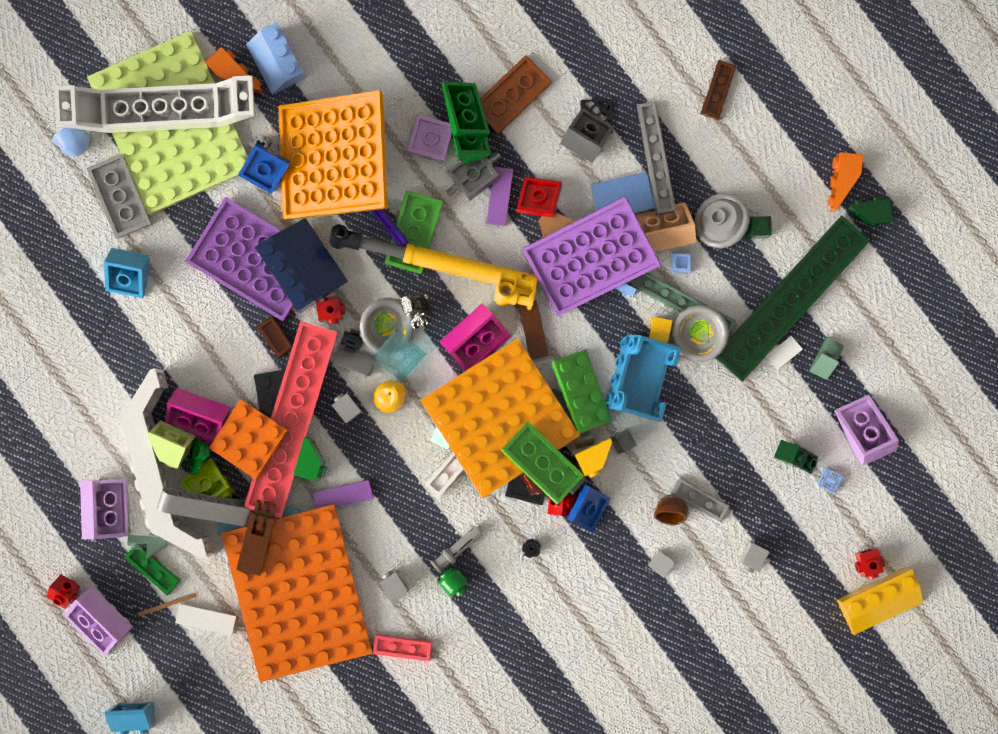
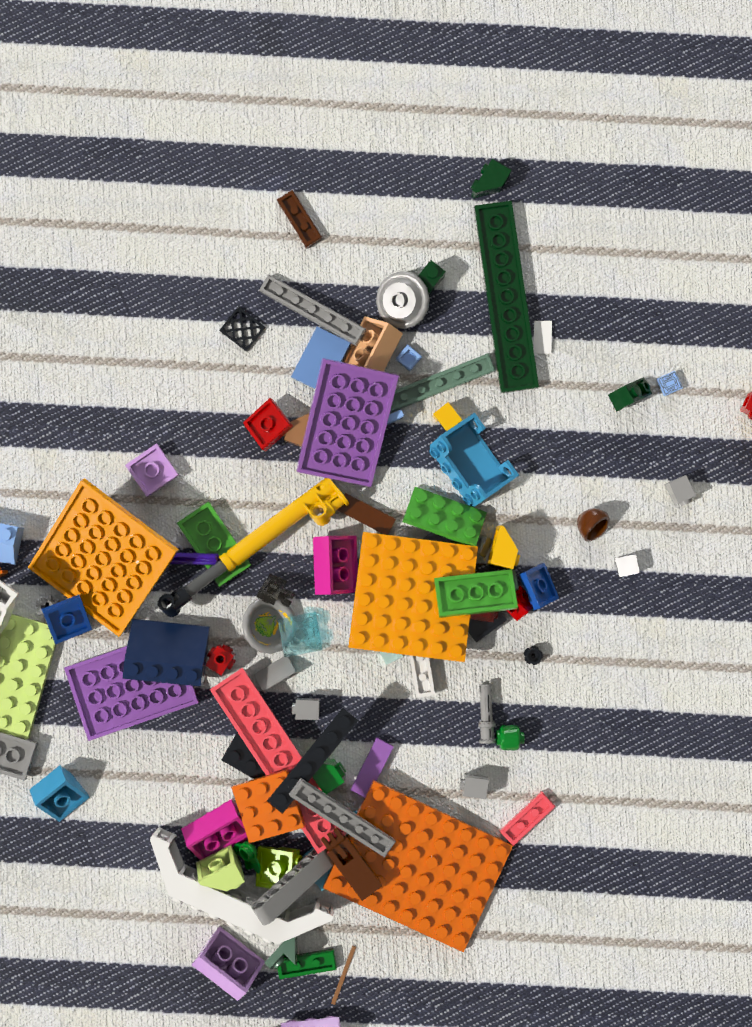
camera: 45 degrees left, 0 degrees up
(206, 619) = (380, 954): white tile -> none
(275, 337) = (205, 718): reddish brown tile -> none
(287, 502) = (342, 817): none -> light grey tile
(313, 443) = (313, 758): none -> black plate
(352, 340) = (258, 661): black gear -> none
(389, 396) = (325, 667): yellow hair -> none
(467, 121) = (162, 431): green slope -> none
(473, 177) = (207, 460): flat silver plate -> none
(500, 197) = (241, 454): medium lavender tile -> none
(513, 94) = (170, 380): dark orange tile -> none
(586, 135) = (250, 348): dark grey slope -> none
(623, 441) = (509, 516): dark grey brick -> none
(700, 333) = (475, 388): light grey piece -> none
(700, 499) = (602, 494): light grey tile -> none
(826, 358) = (574, 308): sand green slope -> none
(847, 171) = (445, 175): orange slope -> none
(866, 430) = (654, 323): lavender slope -> none

